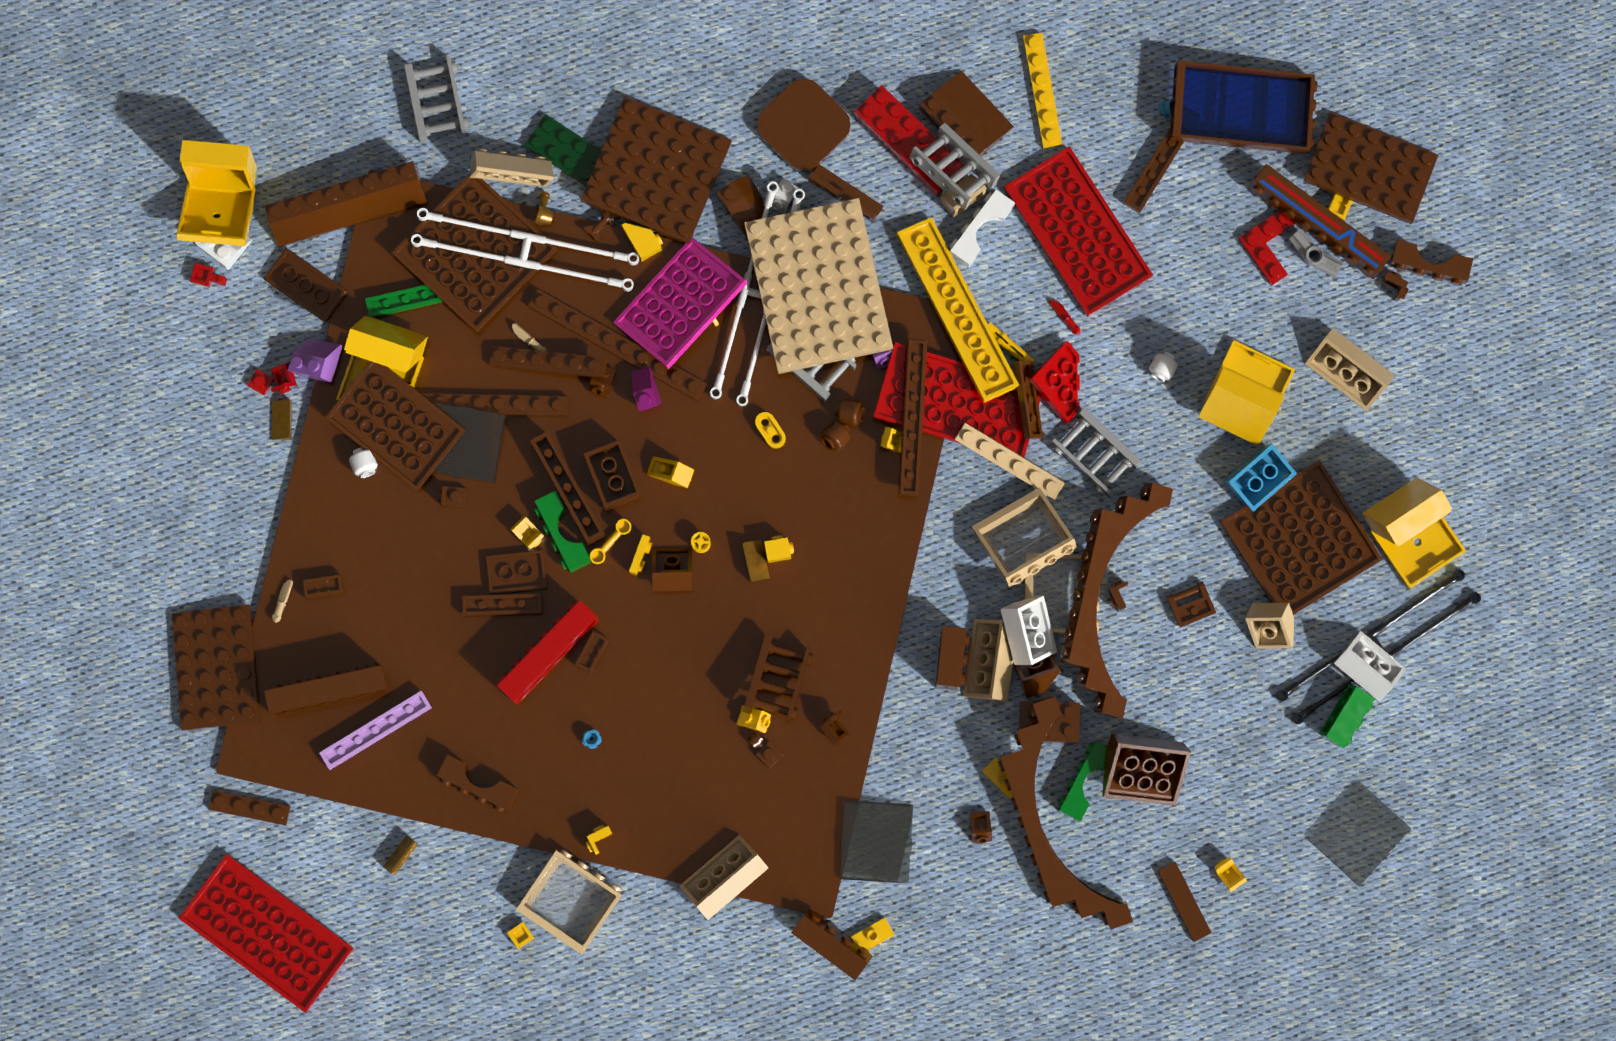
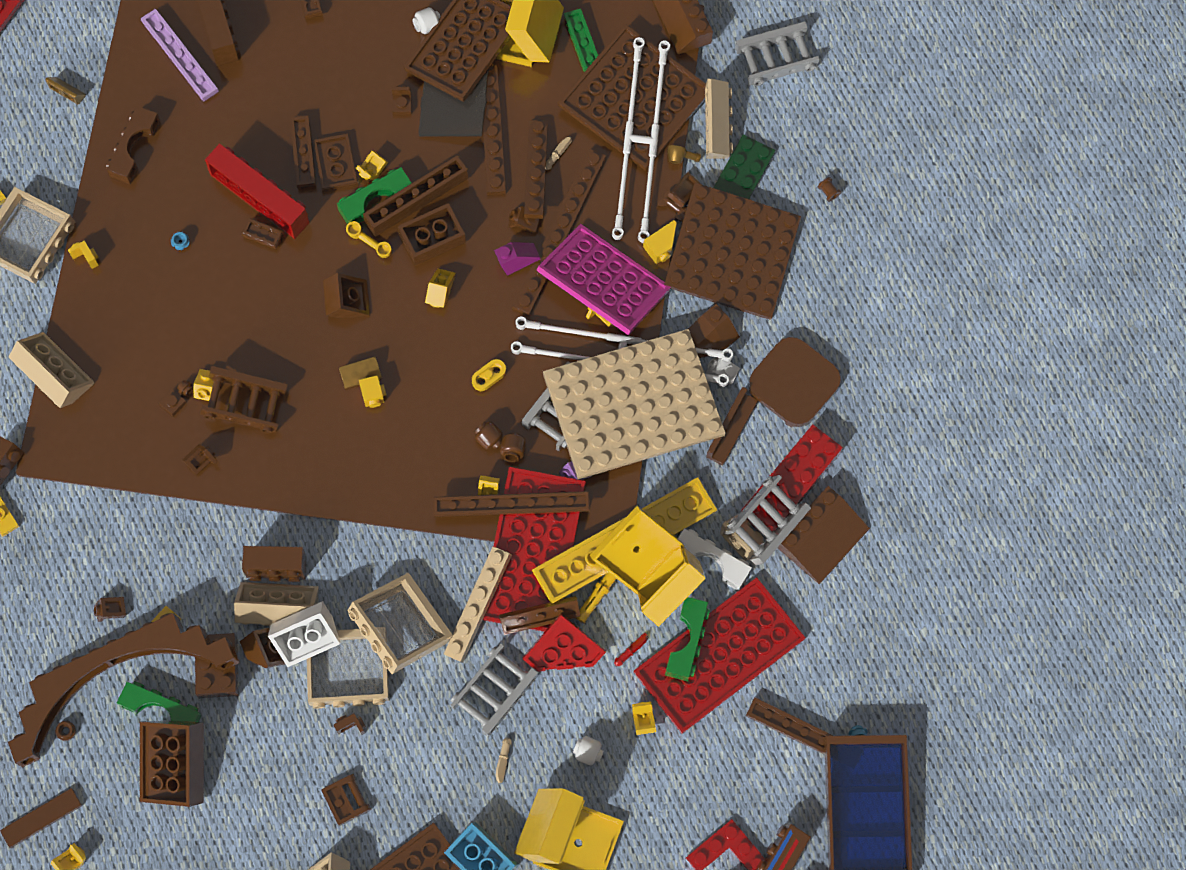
camera: 85 degrees right, 10 degrees down
(584, 213) = (682, 191): none -> reddish brown tile
(595, 64) = (829, 189): none -> reddish brown bush
(638, 563) = (363, 268): yellow plate -> none
(698, 540) = (374, 316): yellow wheel -> none
(876, 841) = (92, 510): clear smoke piece -> none
(996, 275) = (659, 572): none -> yellow container
(1042, 90) = (860, 608): yellow plate -> none
(1081, 641) = (404, 700): reddish brown arch -> none
(1086, 266) = (681, 662): none -> green arch
(1095, 870) = (59, 730): none -> reddish brown plate
(1135, 310) = (643, 718): none -> yellow bracket
(1163, 450) = (502, 762): none -> tan piece

